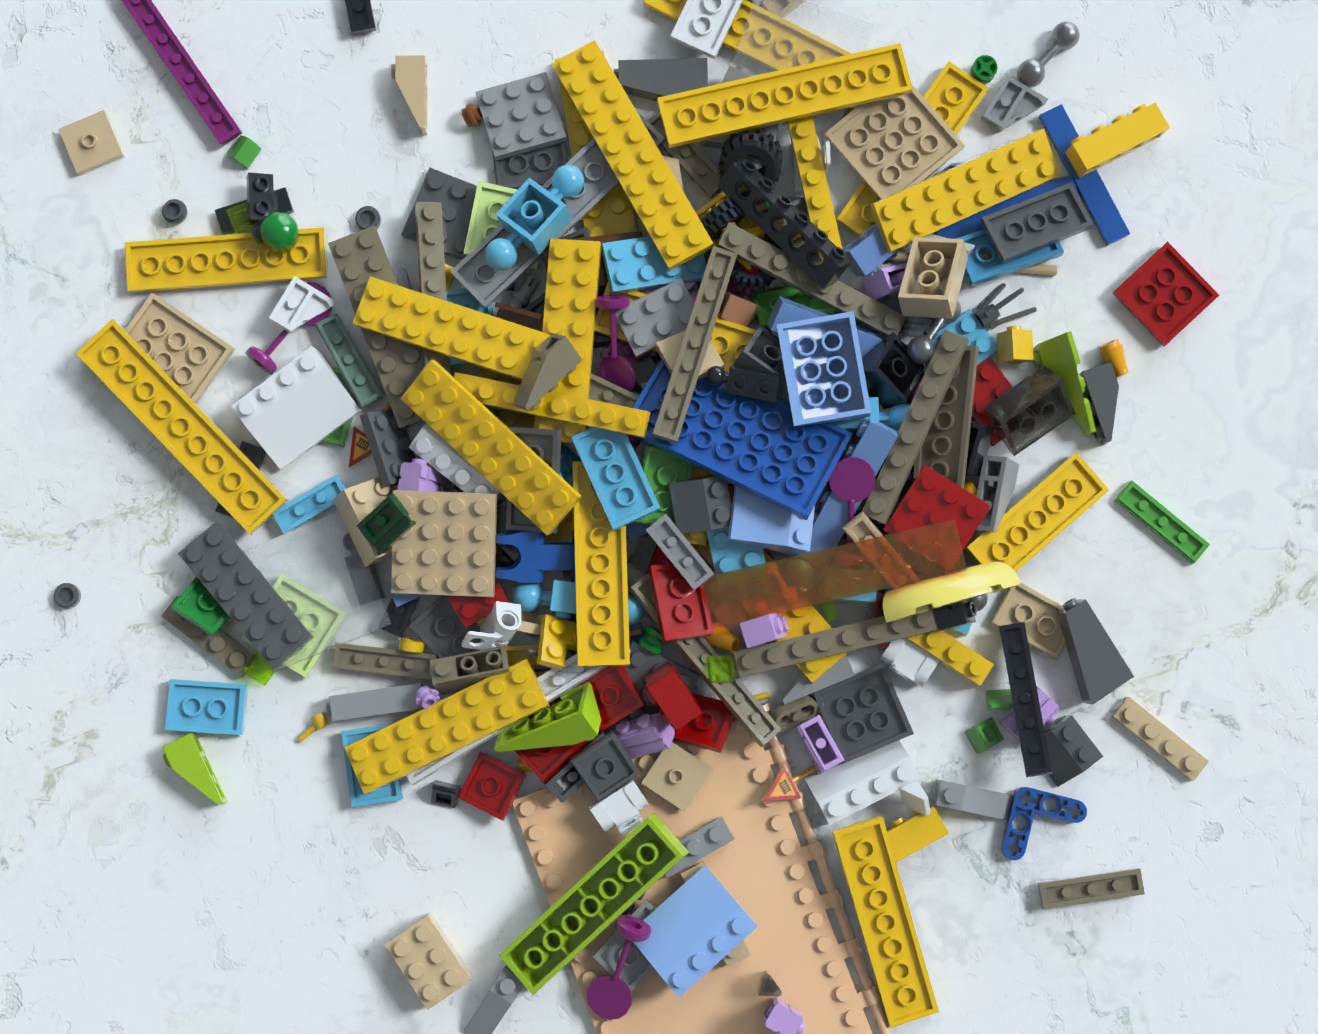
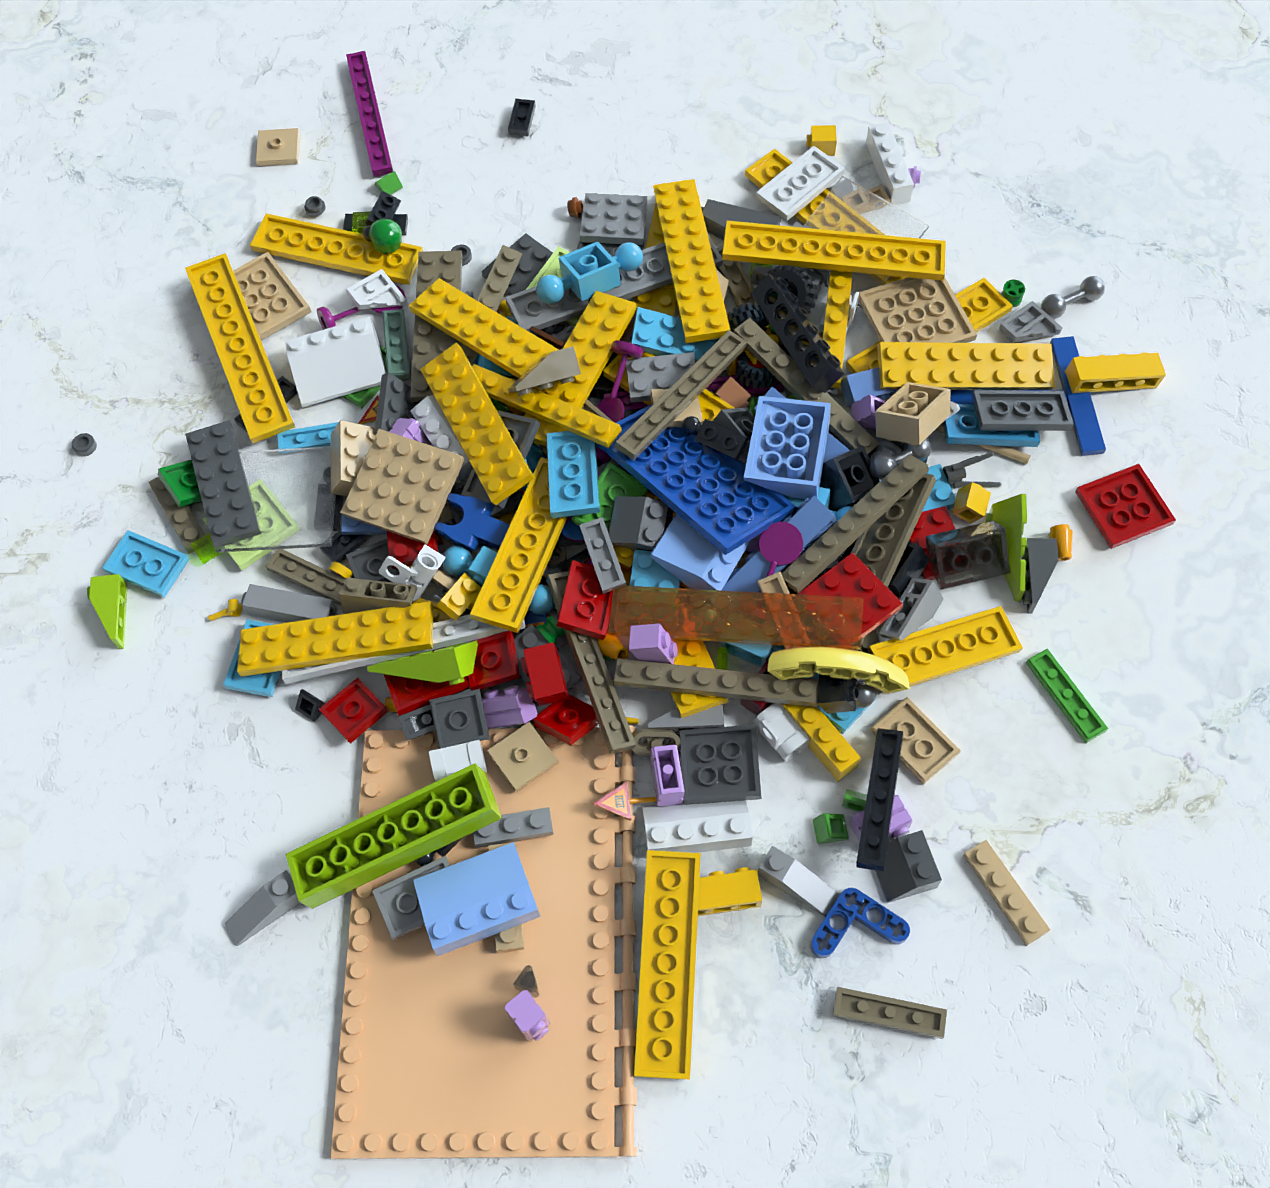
camera: 25 degrees right, 20 degrees down
(386, 524) = (359, 449): dark green plate -> none
(412, 81) = (540, 172): tan slope -> none
(426, 696) = (330, 603): lavender plate -> none
(429, 961) = (223, 843): tan brick -> none
(608, 993) = (372, 932): magenta piece -> none
(721, 669) = (600, 670): clear neon green tile -> none
(915, 798) = (740, 853): white slope -> none
(1091, 651) = (961, 782): dark grey slope -> none

